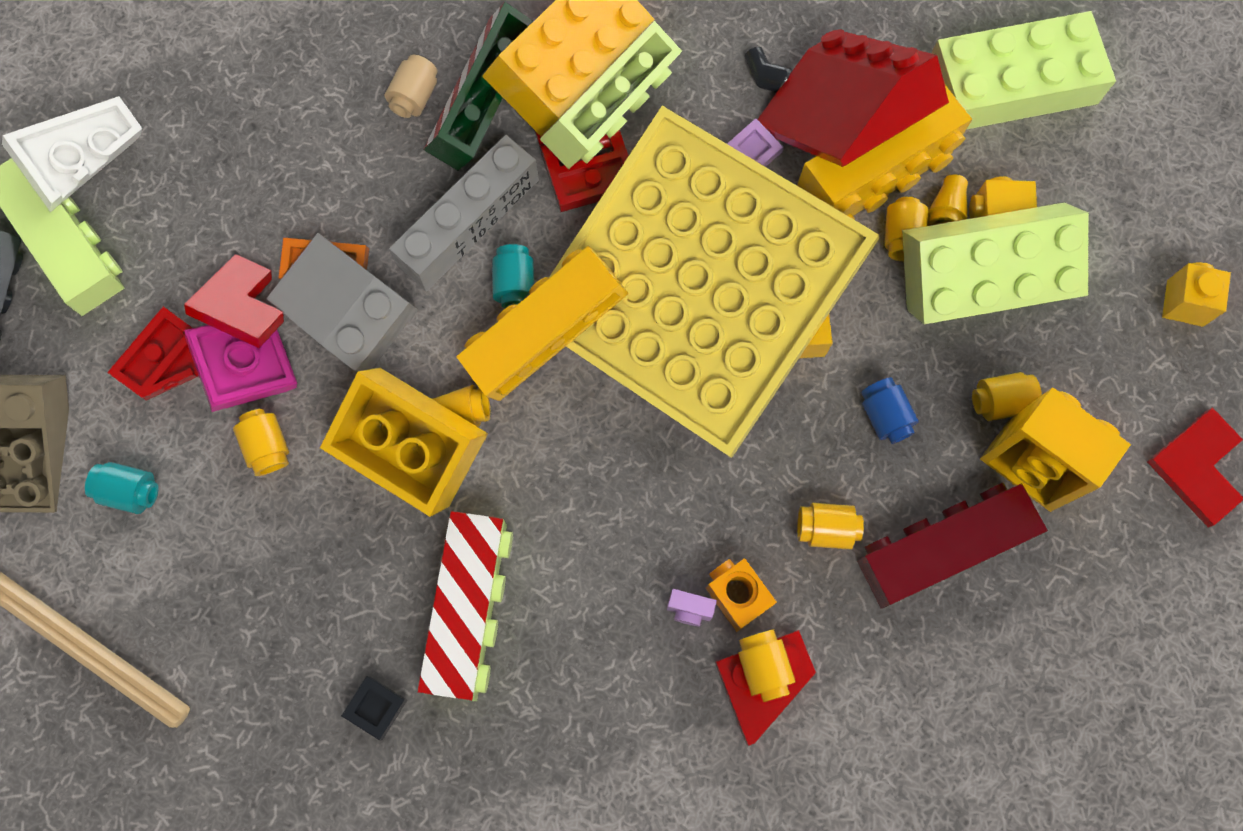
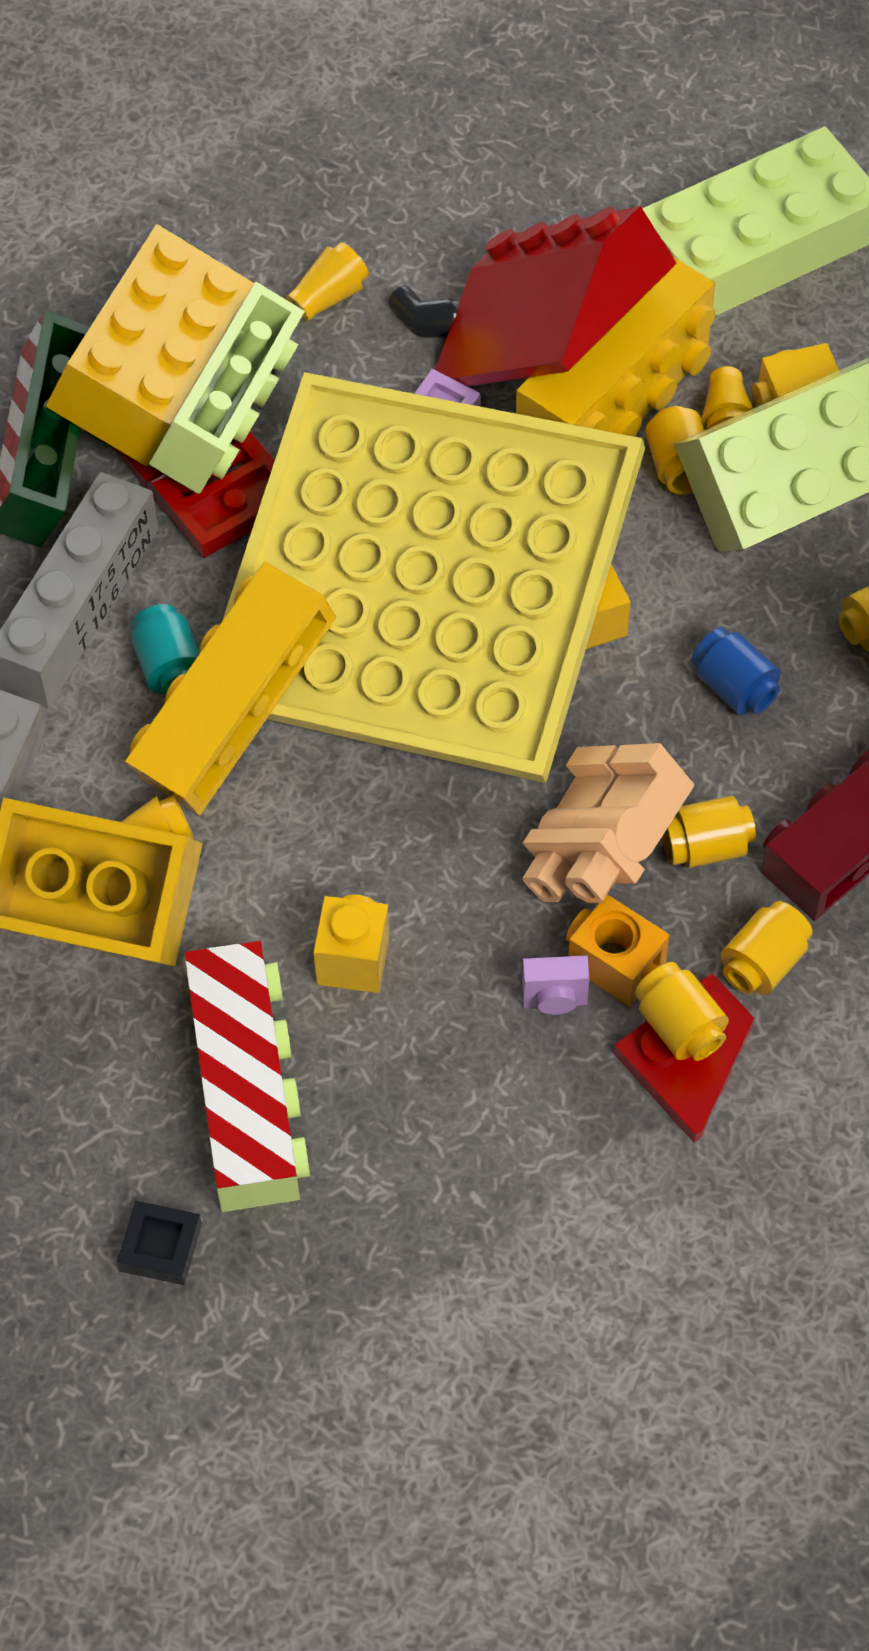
camera: 15 degrees left, 15 degrees down
(565, 533) = (352, 943): none -> yellow brick
(709, 28) = (330, 280): none -> yellow cone
(761, 504) = (605, 821): none -> light nougat hips
(840, 625) = (766, 948): none -> yellow brick

